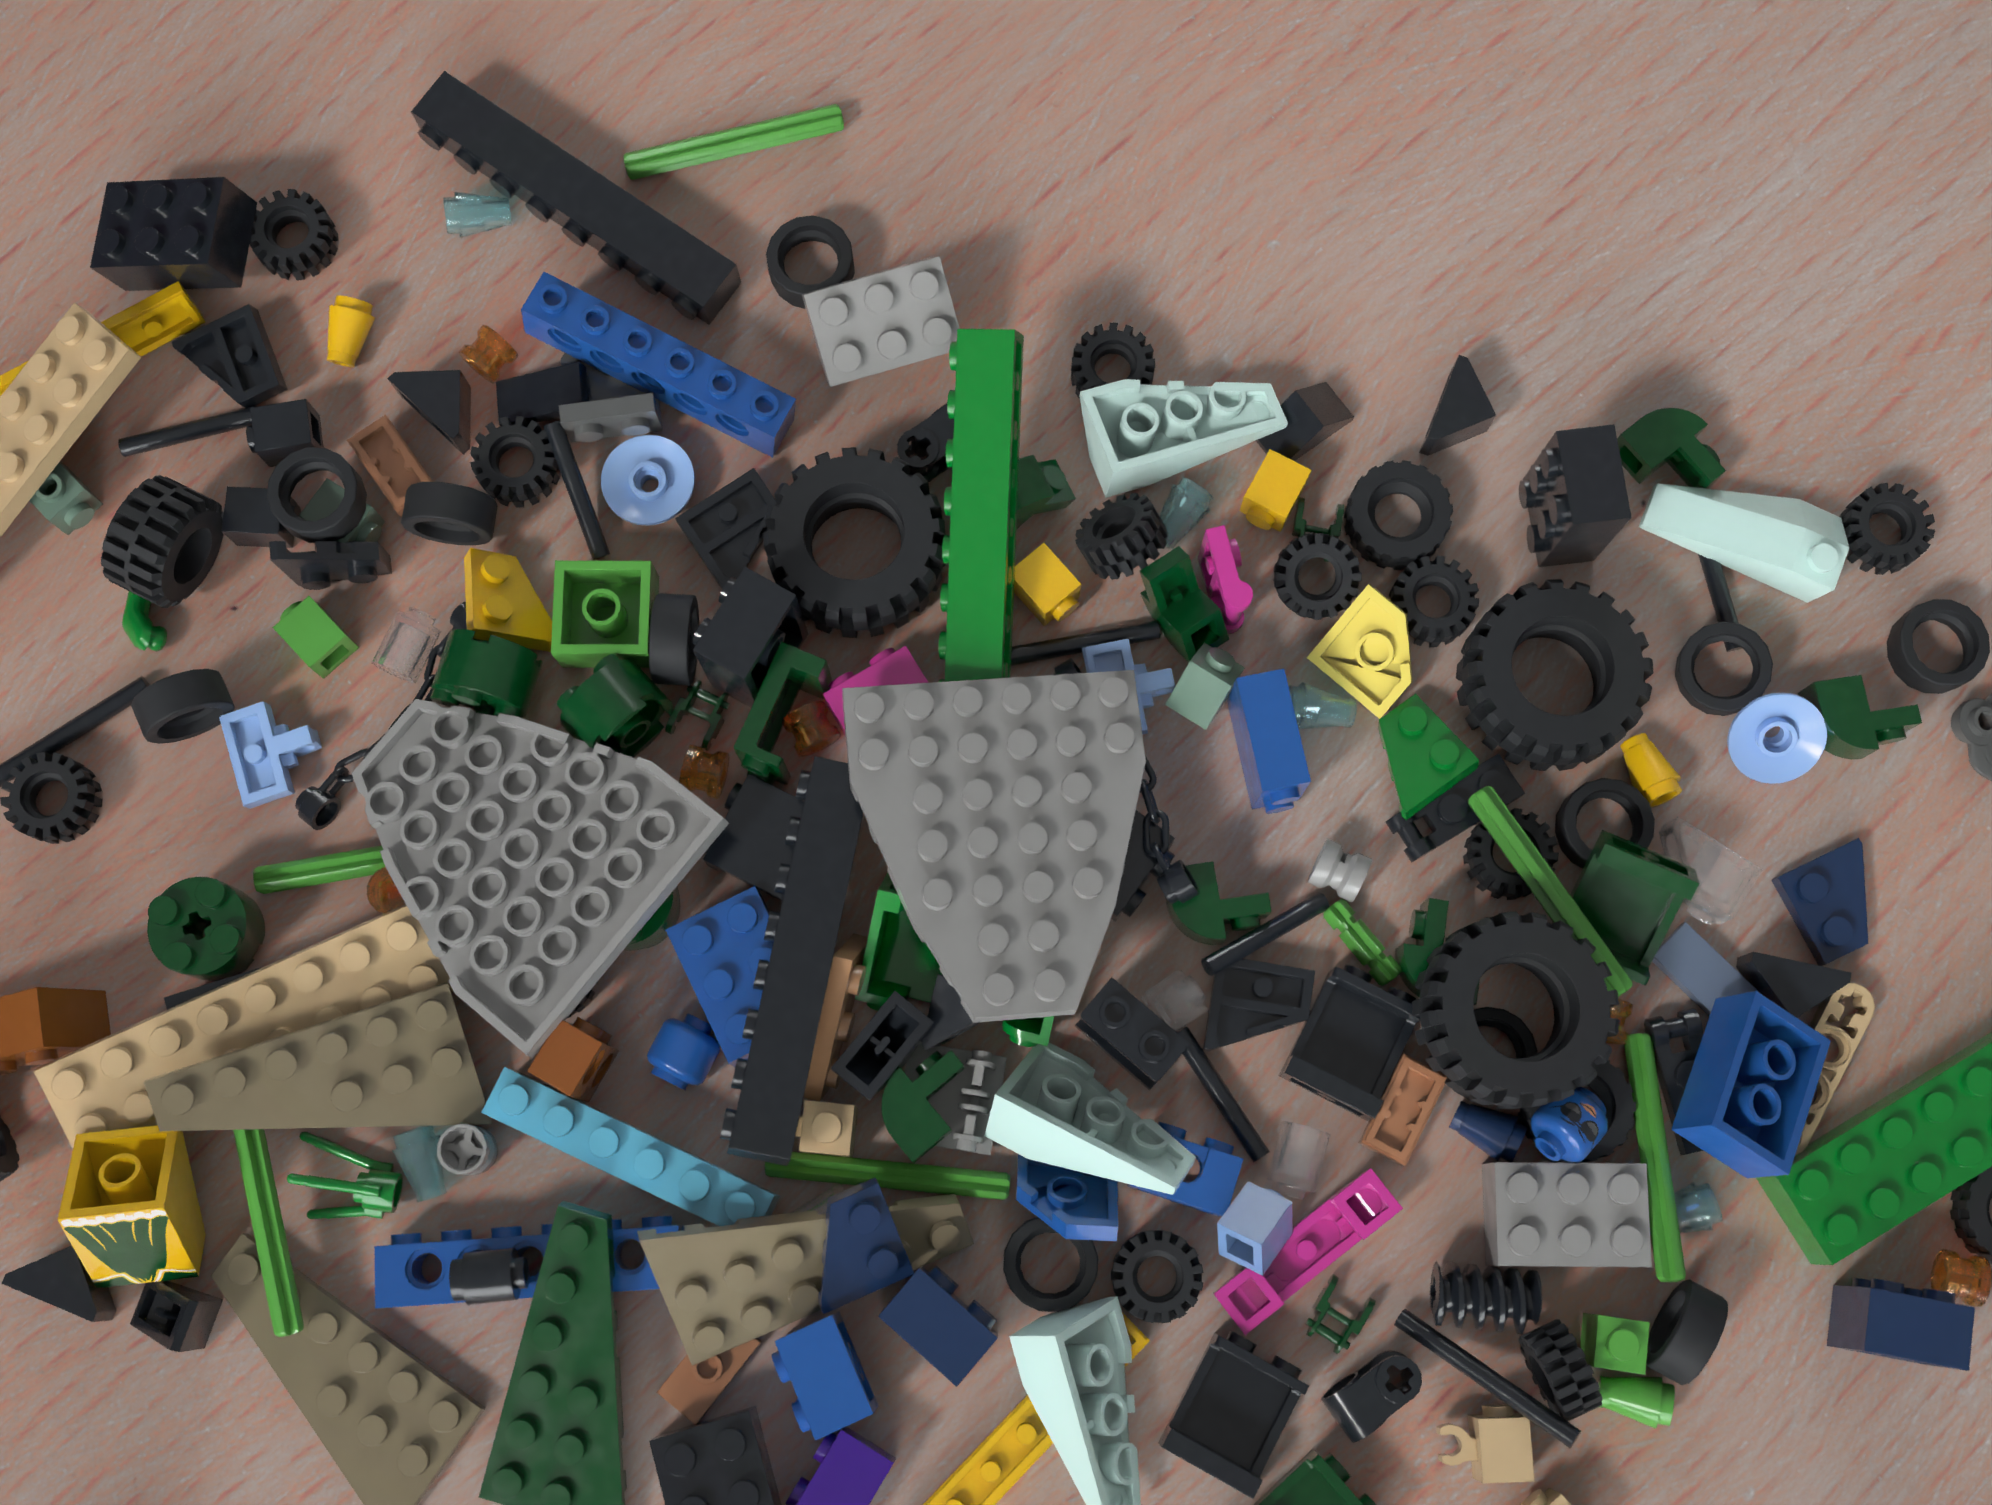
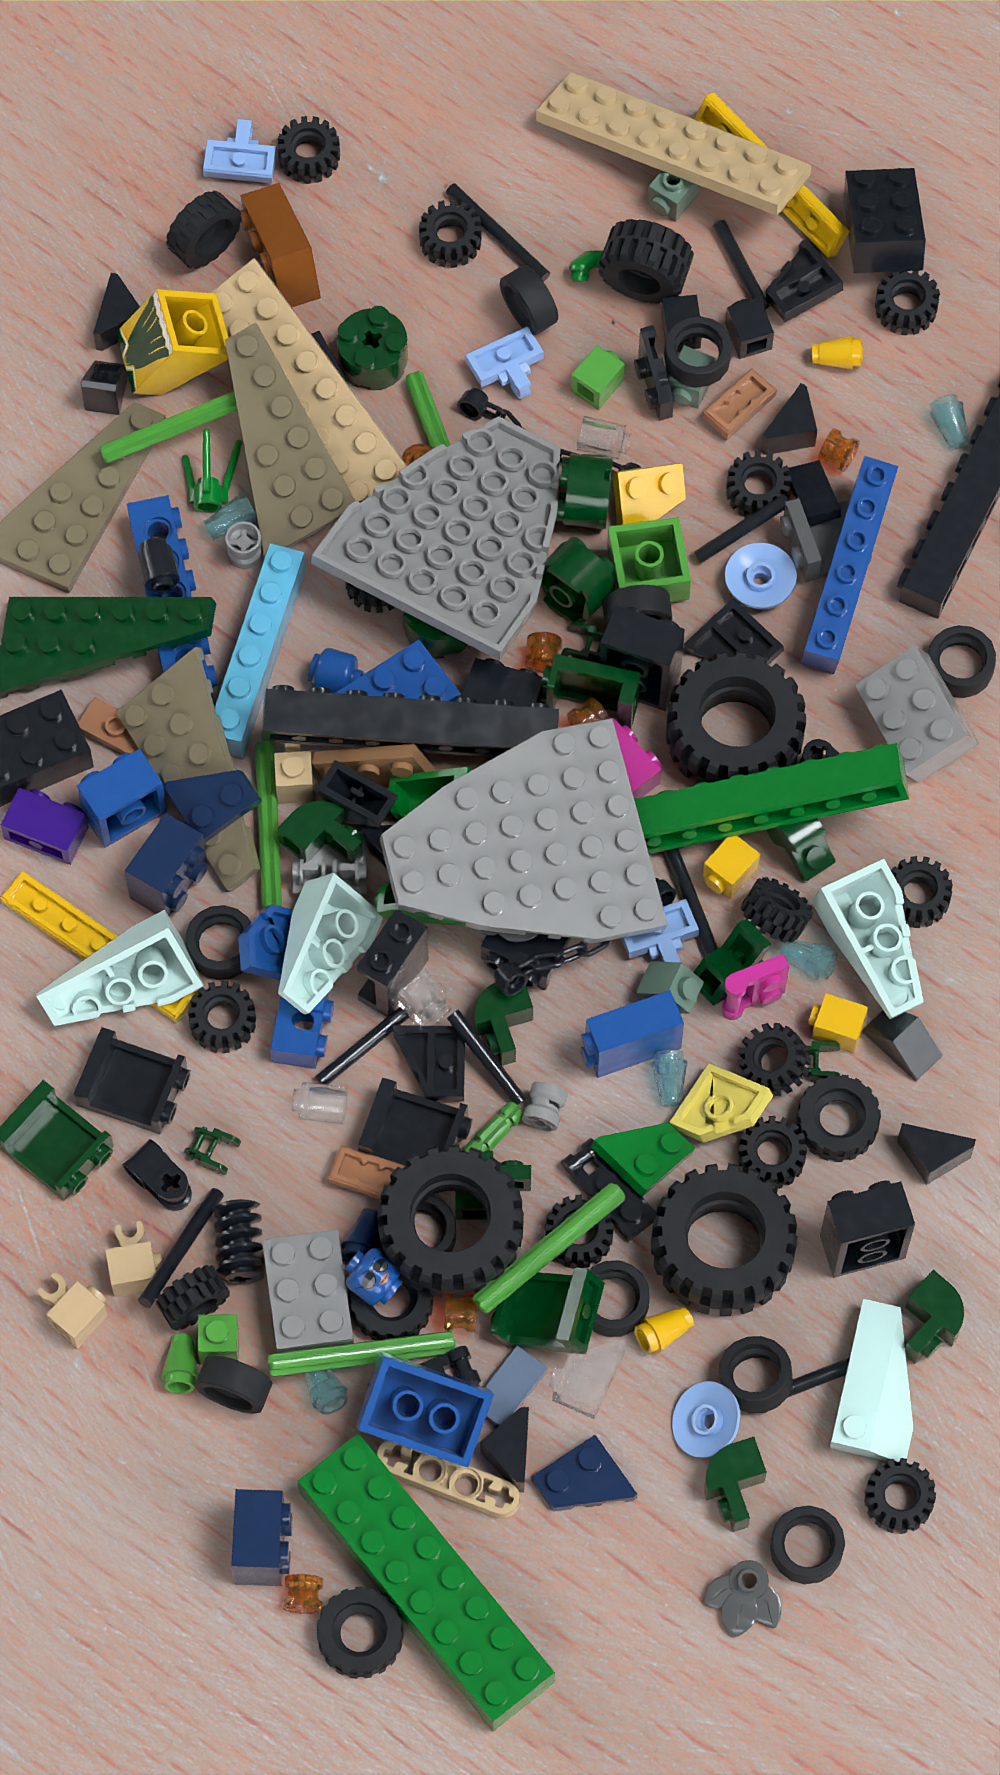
camera: 80 degrees right, 10 degrees down
(449, 513) = (704, 444): black tyre -> none
(574, 1058) = (316, 598): dark orange brick -> none
(1255, 1227) = (266, 1073): medium blue brick -> none
(1312, 1247) = (252, 1116): dark pink slope -> none

